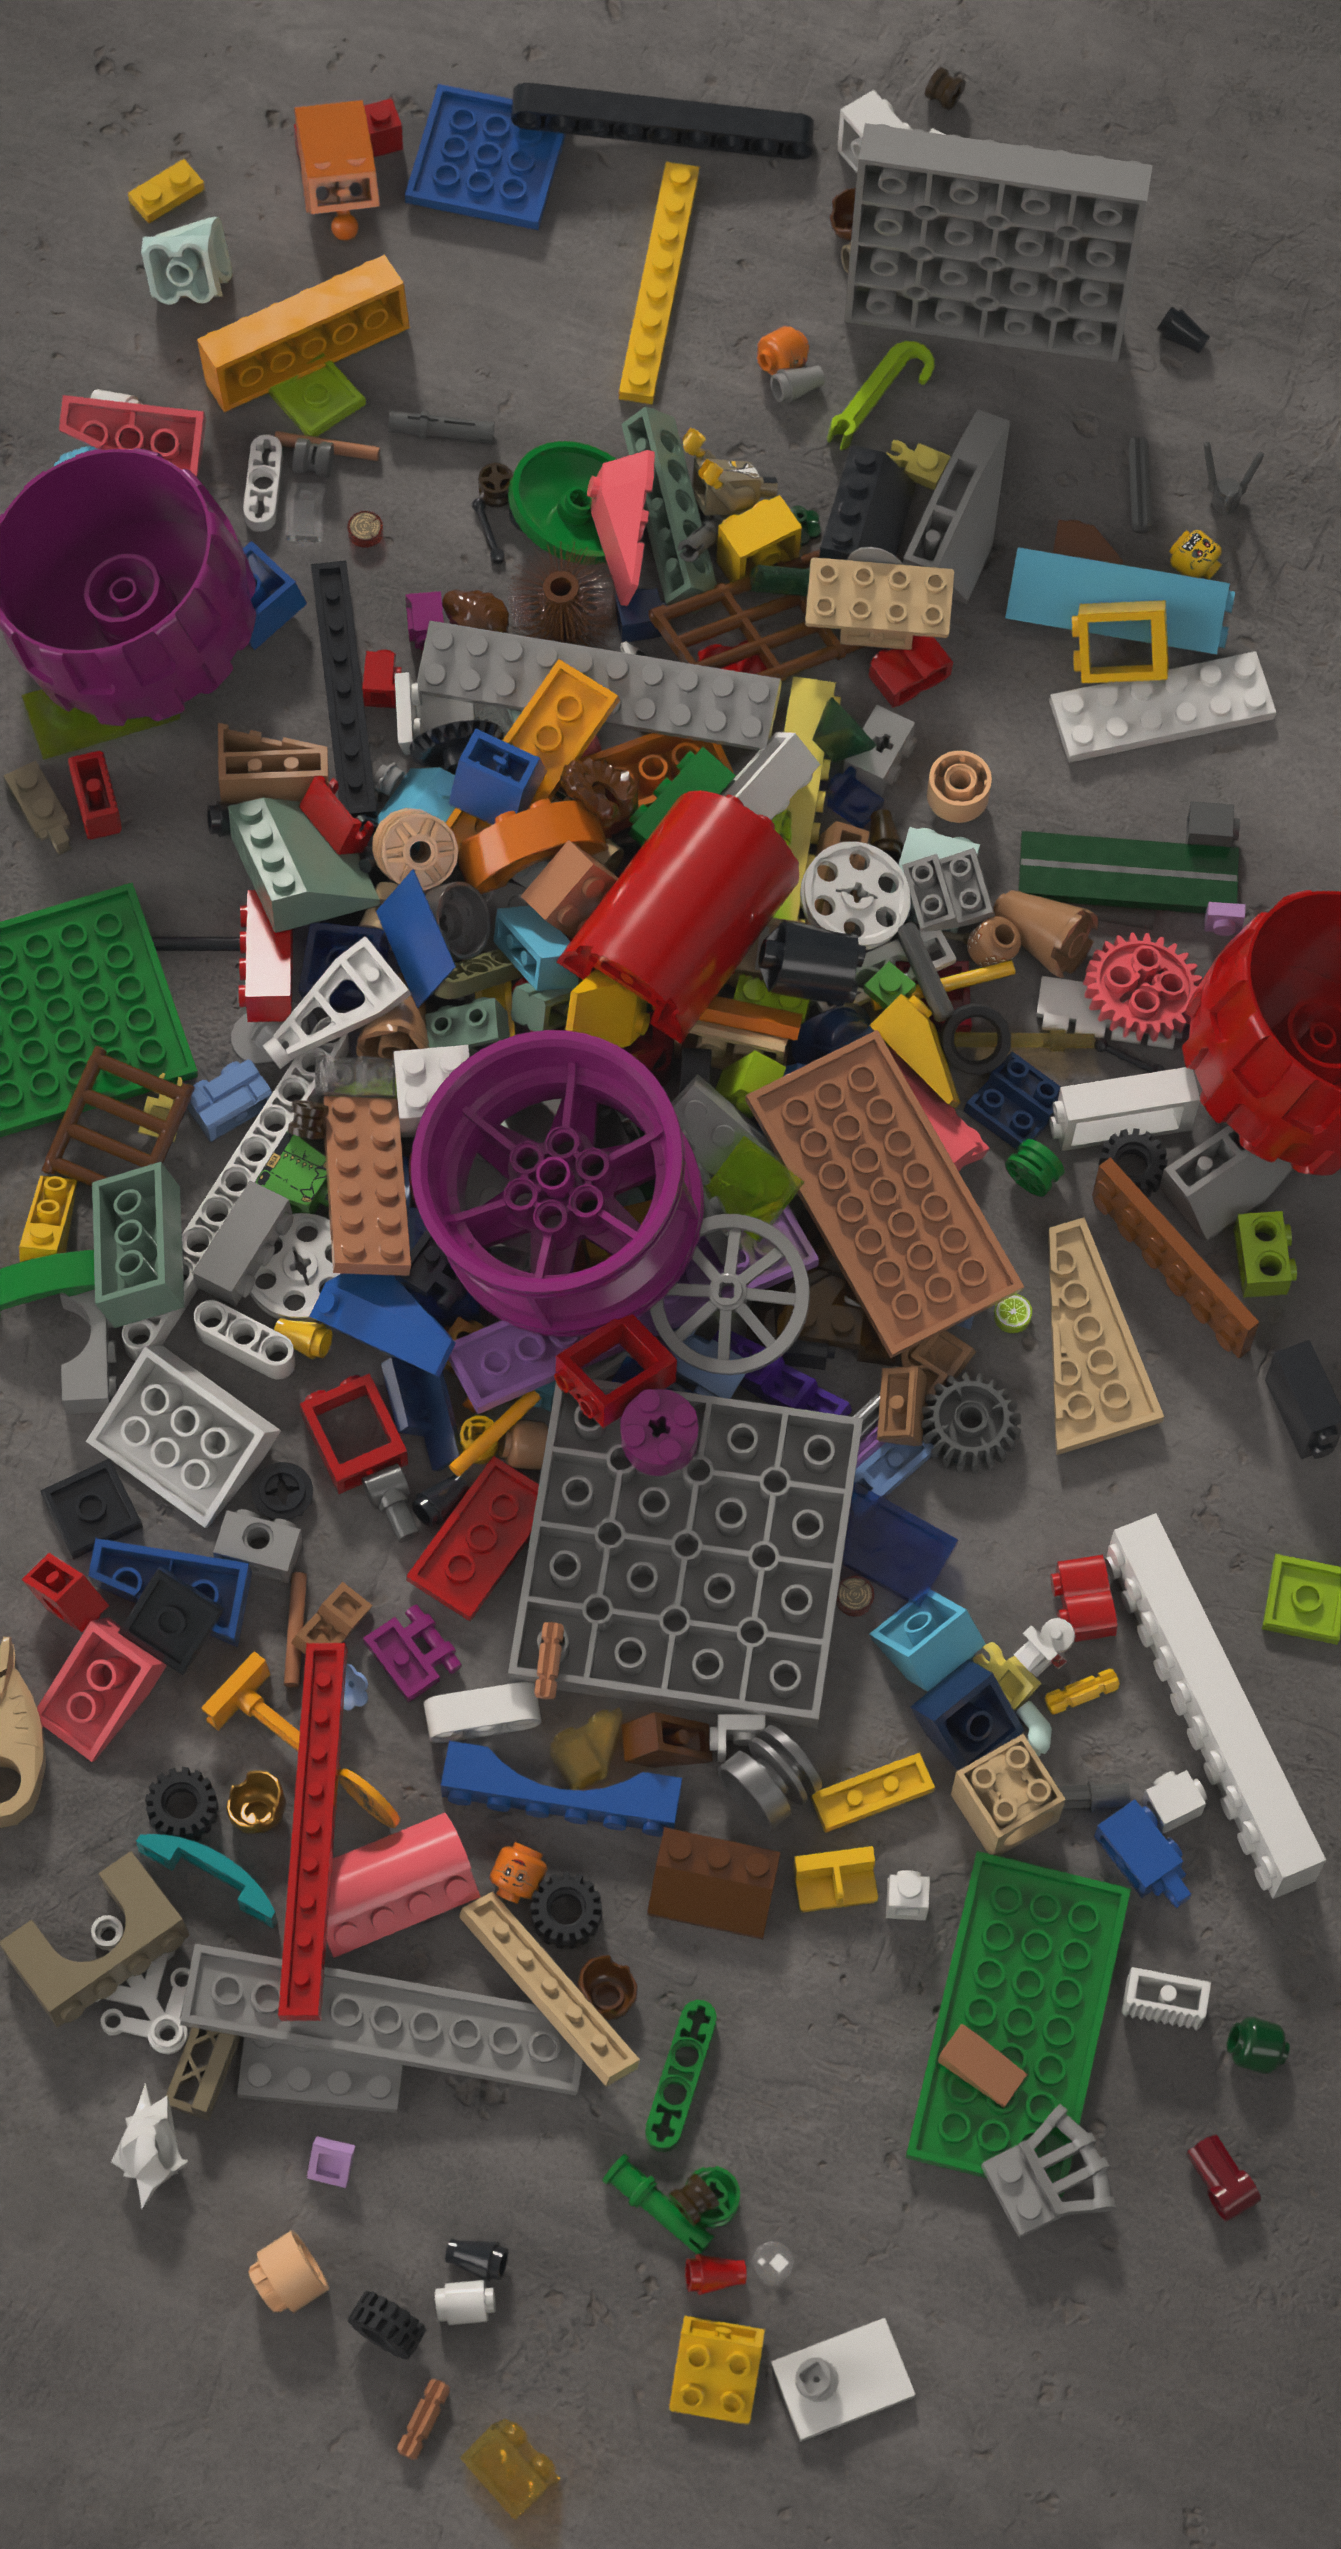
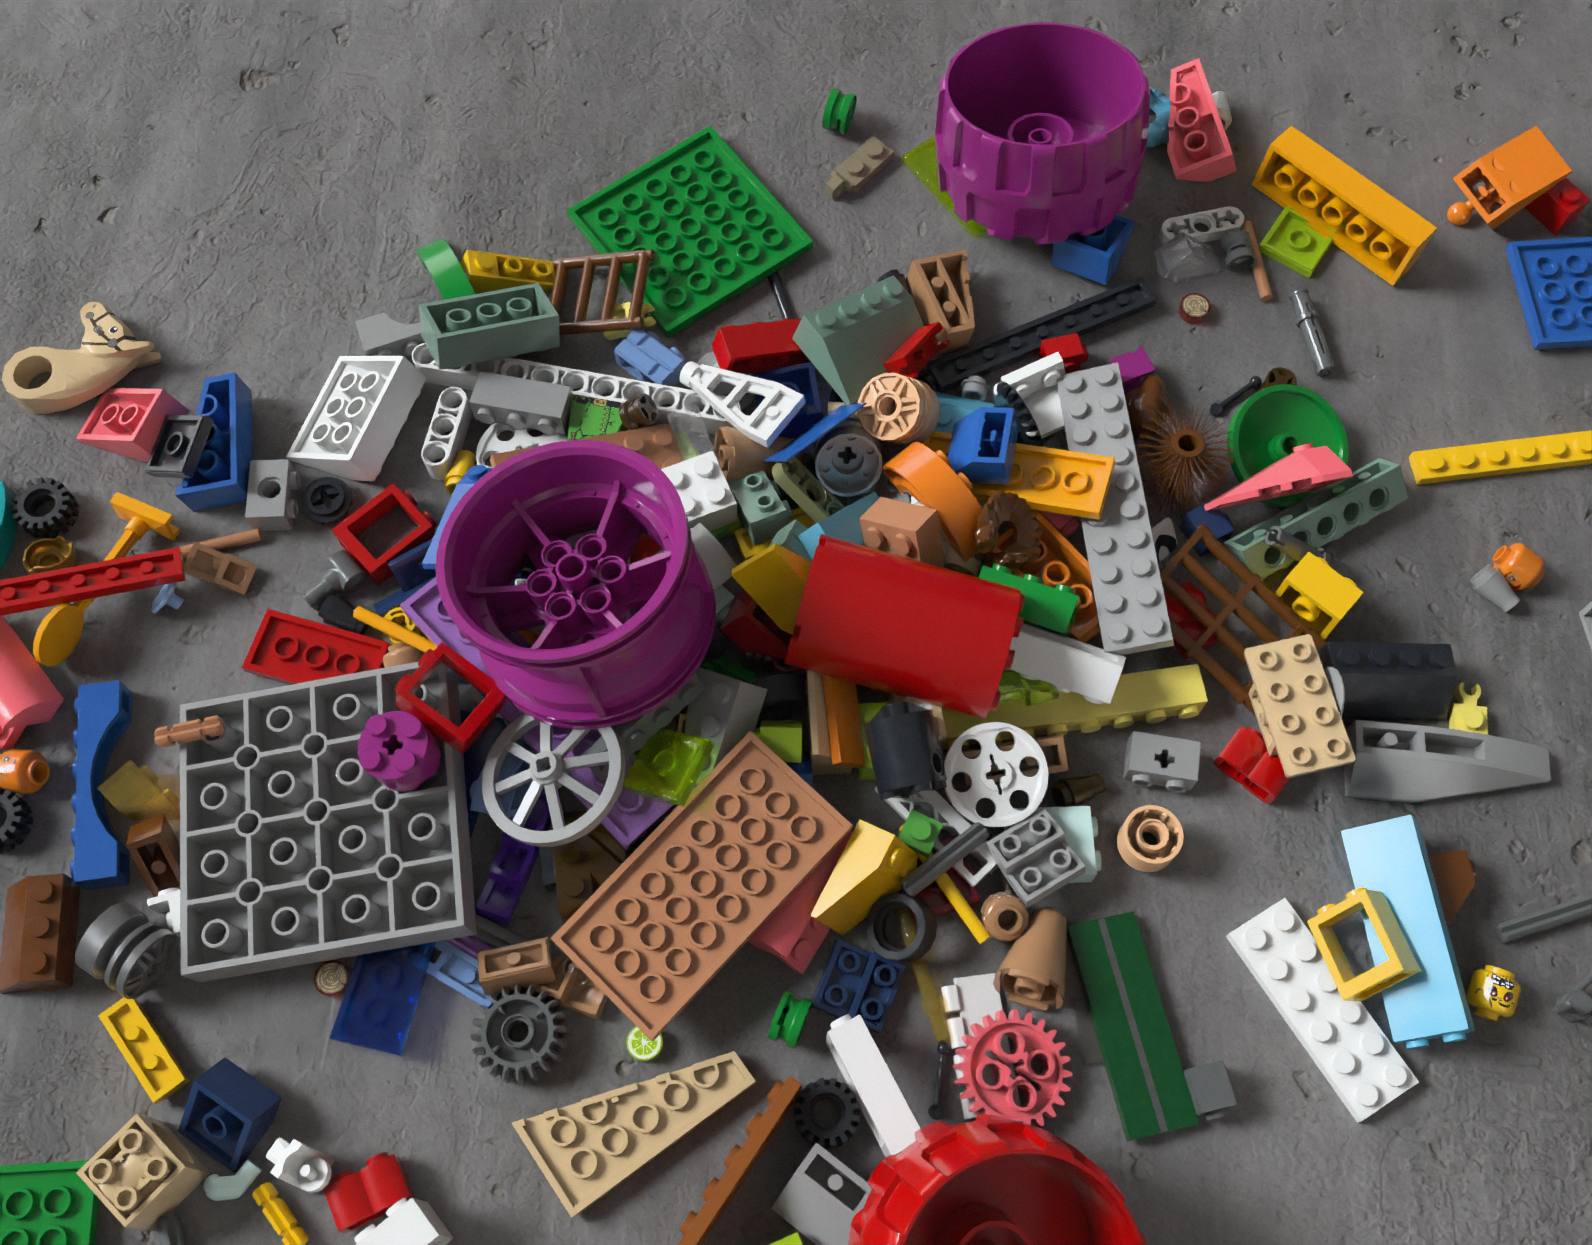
camera: 75 degrees right, 0 degrees up
(65, 1592) = (185, 368): red brick -> none
(90, 1508) = (284, 376): black tile -> none
(95, 795) = (875, 192): red brick -> none
(166, 191) = (1424, 89): yellow plate -> none
(187, 262) = (1365, 113): light aqua piece -> none
(402, 1658) = (198, 628): magenta plate -> none
(482, 1712) = (156, 694): white beam -> none
(725, 485) = (1361, 551): dark tan torso -> none
(779, 580) = (1281, 618): clear green slope -> none
(809, 521) = (1357, 630): dark green plant -> none
(830, 1032) = (857, 798): dark blue piece -> none
(835, 1879) = (58, 1039): yellow panel -> none
(840, 733) = (1159, 718): clear green slope -> none
(852, 798) = (1106, 753): clear blue bracket -> none
(877, 385) = (1526, 655): lime piece -> none
(907, 1896) = (45, 1108): white brick -> none
(928, 1640) = (296, 1056): medium azure slope -> none
(1011, 1675) = (288, 1121): light yellow plate -> none
(1224, 918) = (1115, 1131): lavender plate -> none

